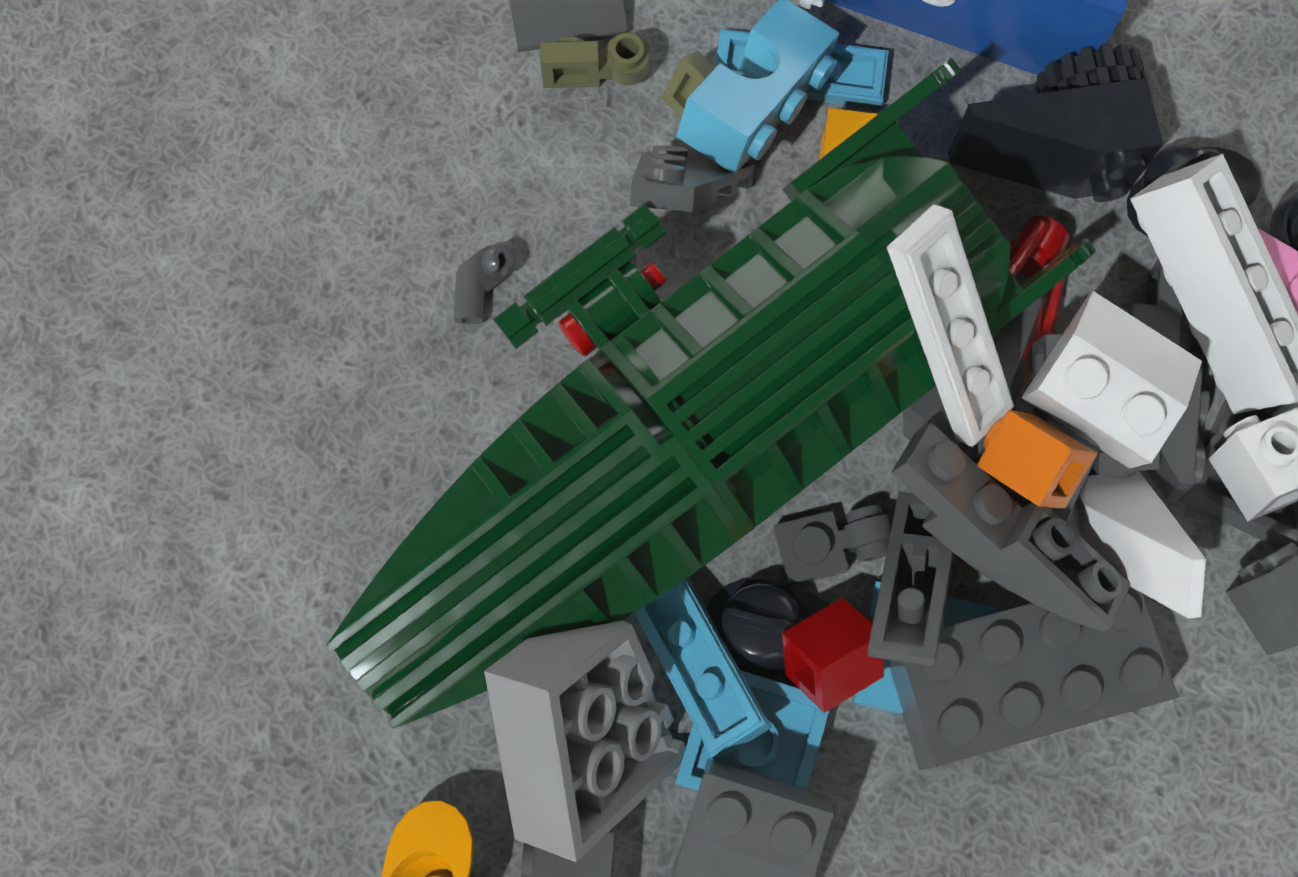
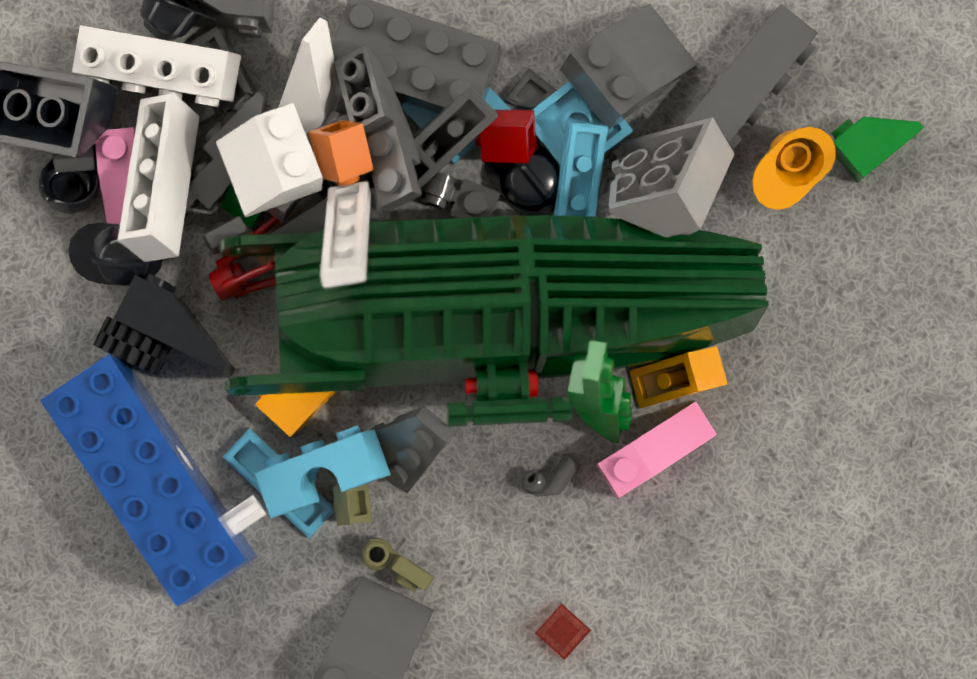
camera: 145 degrees left, 10 degrees up
(346, 120) = (562, 631): none -> clear red tile
(371, 392) = (656, 450): none -> bright pink slope
(393, 501) = (678, 377): none -> light orange slope
(481, 387) = (598, 394): none -> green slope
(847, 747) = (529, 91): none -> dark grey tile
(1090, 276) = (222, 230): none -> dark grey plate

